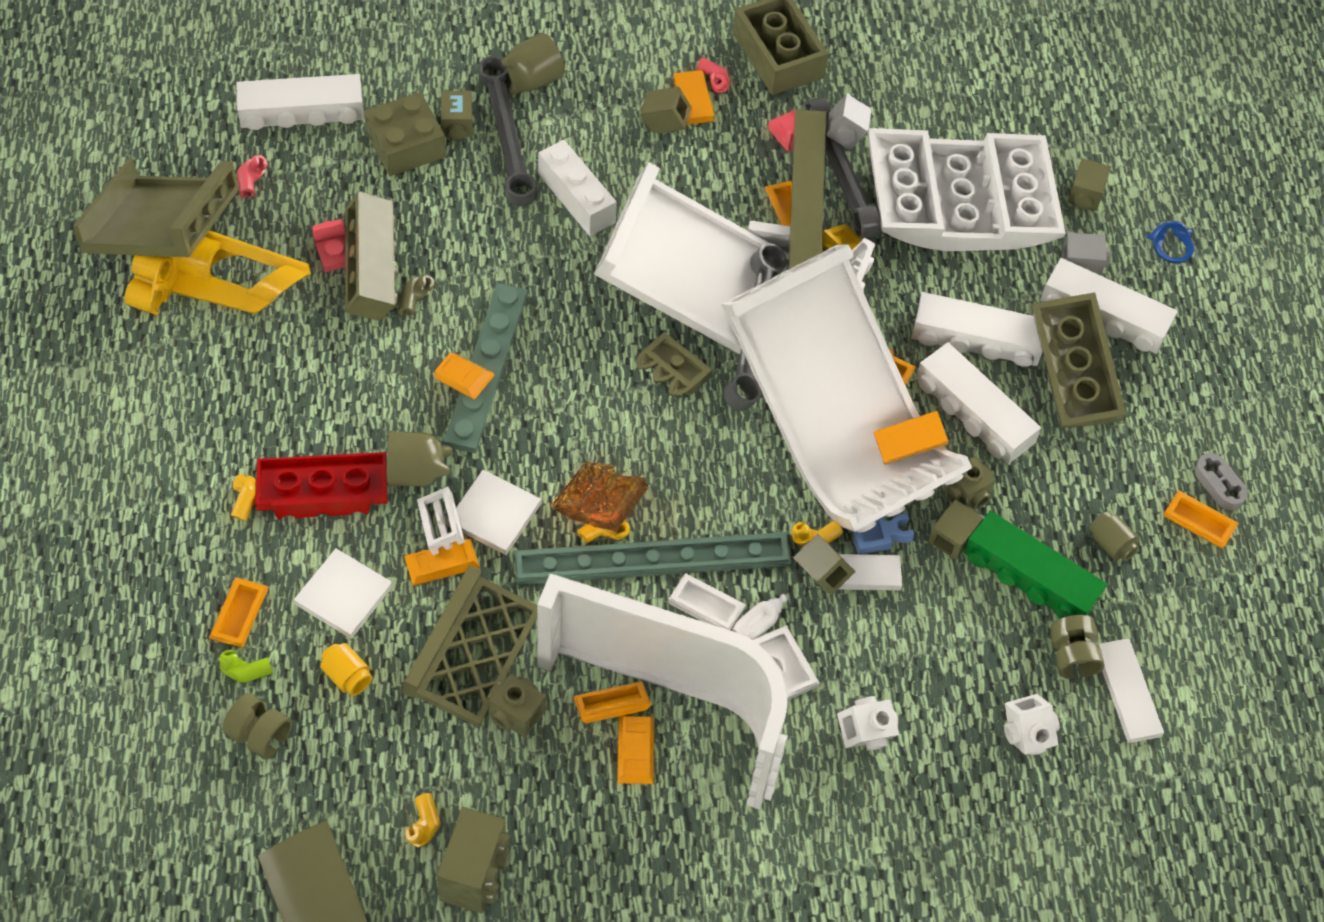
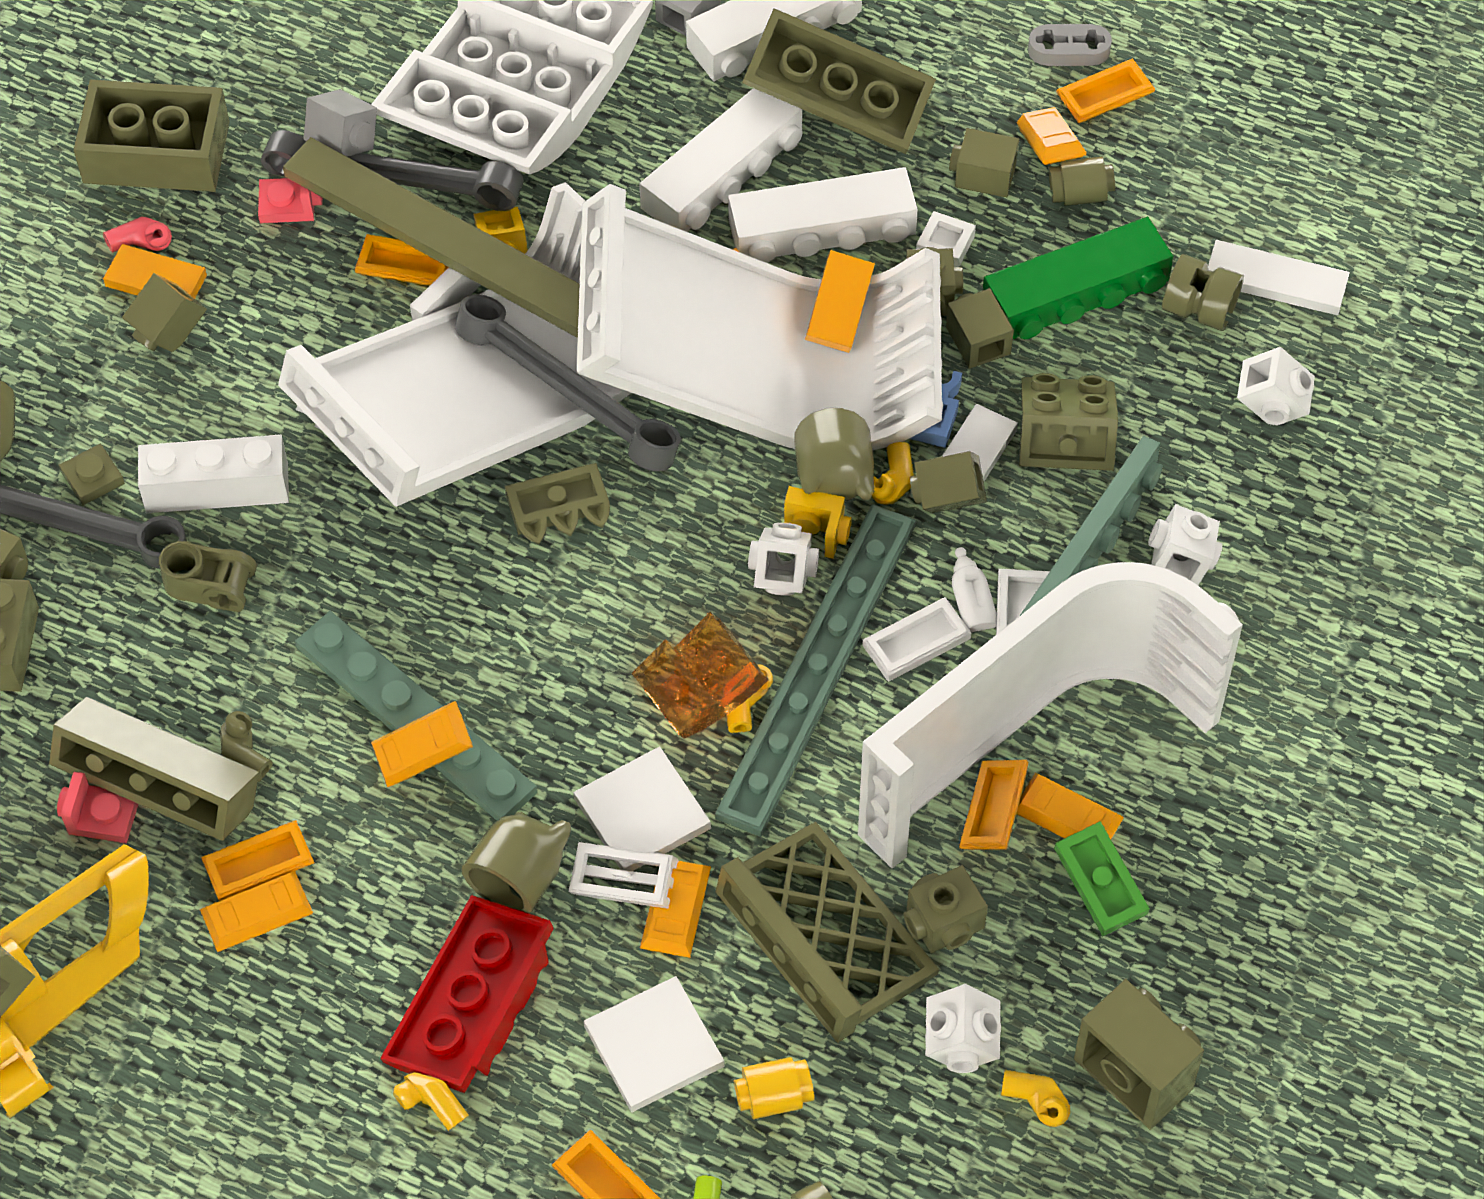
camera: 55 degrees left, 0 degrees up
(317, 354) = (256, 911): none -> light orange tile
(347, 337) = (257, 860): none -> light orange tile
(439, 753) = (963, 1028): none -> white brick
(510, 222) = (210, 576): none -> olive piece
(543, 134) = (91, 474): none -> olive plate
(595, 787) = (1101, 878): none -> bright green plate
(707, 499) = (771, 571): none -> white brick
(755, 507) = (819, 513): none -> yellow bracket
(796, 490) = (835, 454): none -> olive piece
(851, 666) = (1103, 523): none -> sand green plate
(922, 611) = (1068, 422): none -> olive bracket
(1011, 480) = (947, 232): none -> white plate
(1086, 474) = (985, 162): none -> olive brick
(1135, 502) = (1050, 136): none -> light orange tile

